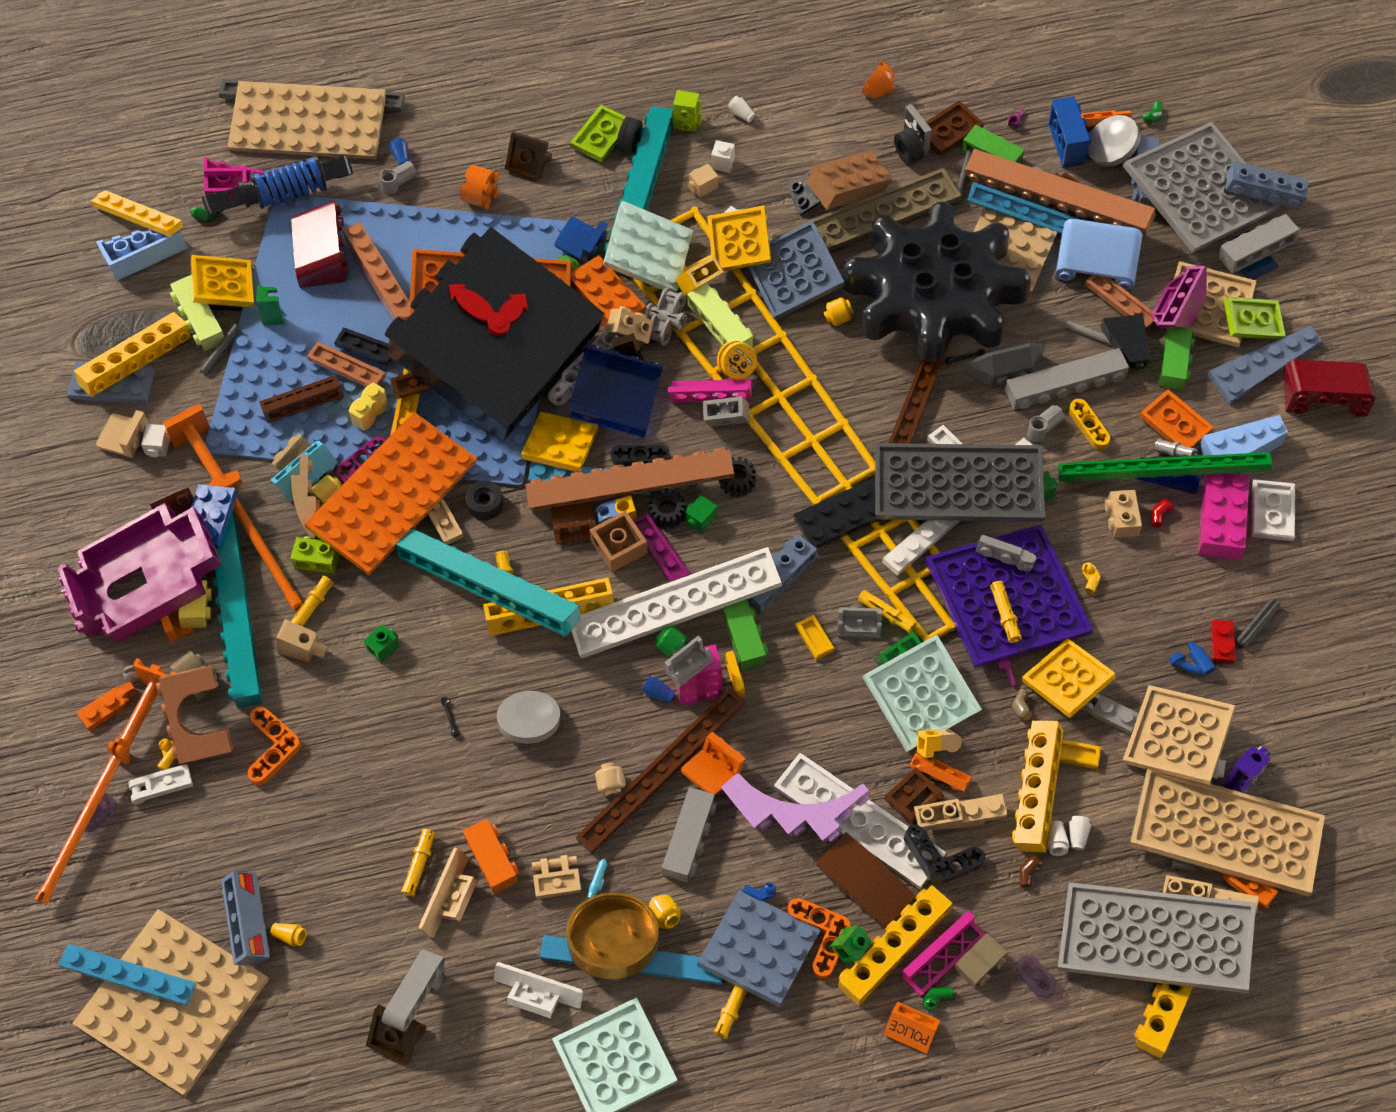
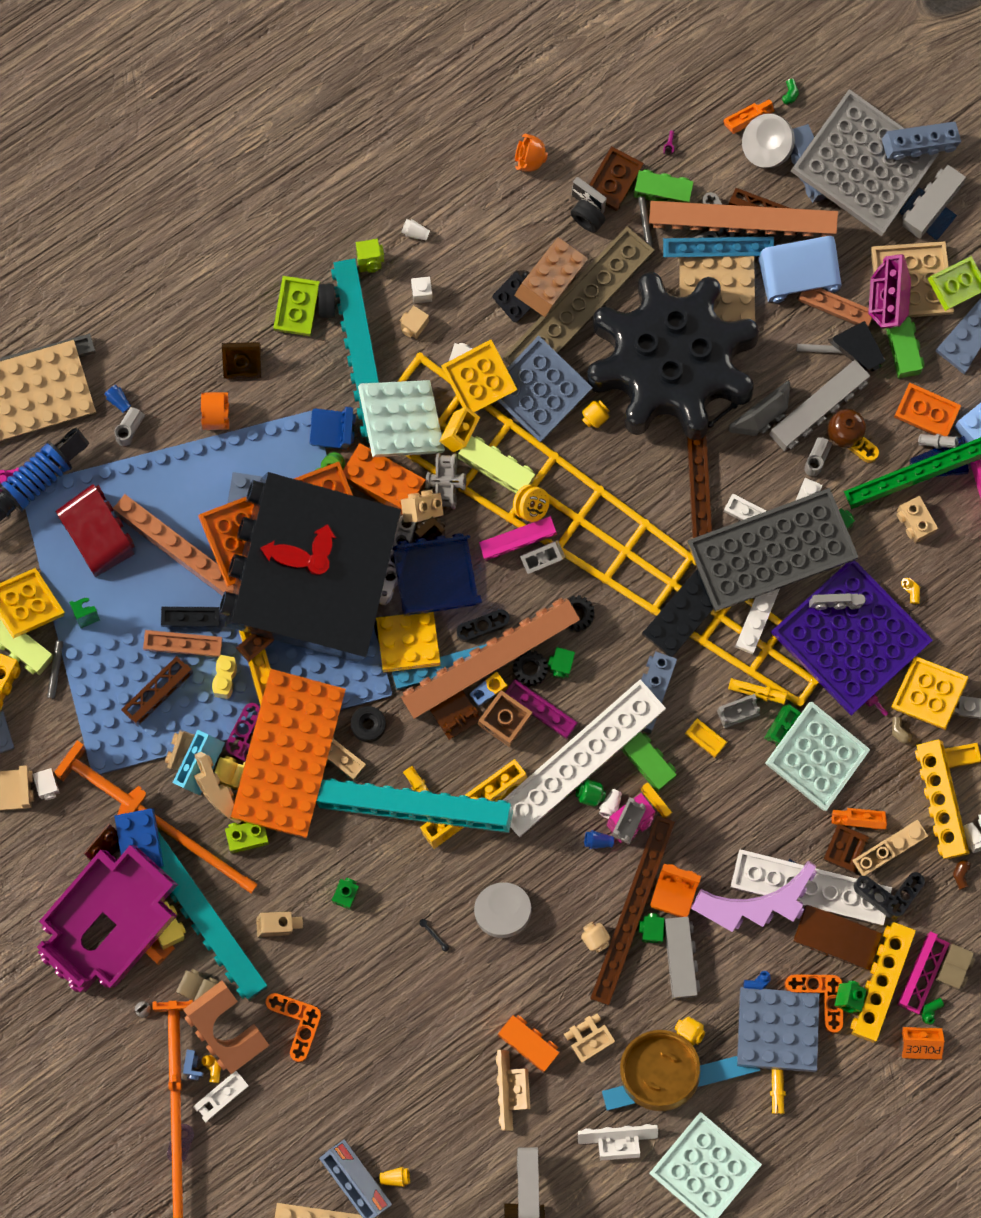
camera: 30 degrees left, 15 degrees up
(106, 706) = (136, 1047): orange hinge -> none
(148, 738) = (190, 1062): none -> medium blue bracket
(315, 597) = (265, 883): yellow pin -> none
(418, 862) = (470, 1064): yellow pin -> none
(598, 880) = (623, 1026): medium azure piece -> none
(672, 795) = (652, 928): none -> green brick
(937, 740) = (846, 794): leg -> none
(1008, 619) = (860, 658): yellow pin -> none
(1069, 131) = (725, 146): blue brick -> none
(1085, 405) = (847, 428): none -> reddish brown cylinder
(1158, 511) = (943, 503): red arm -> none

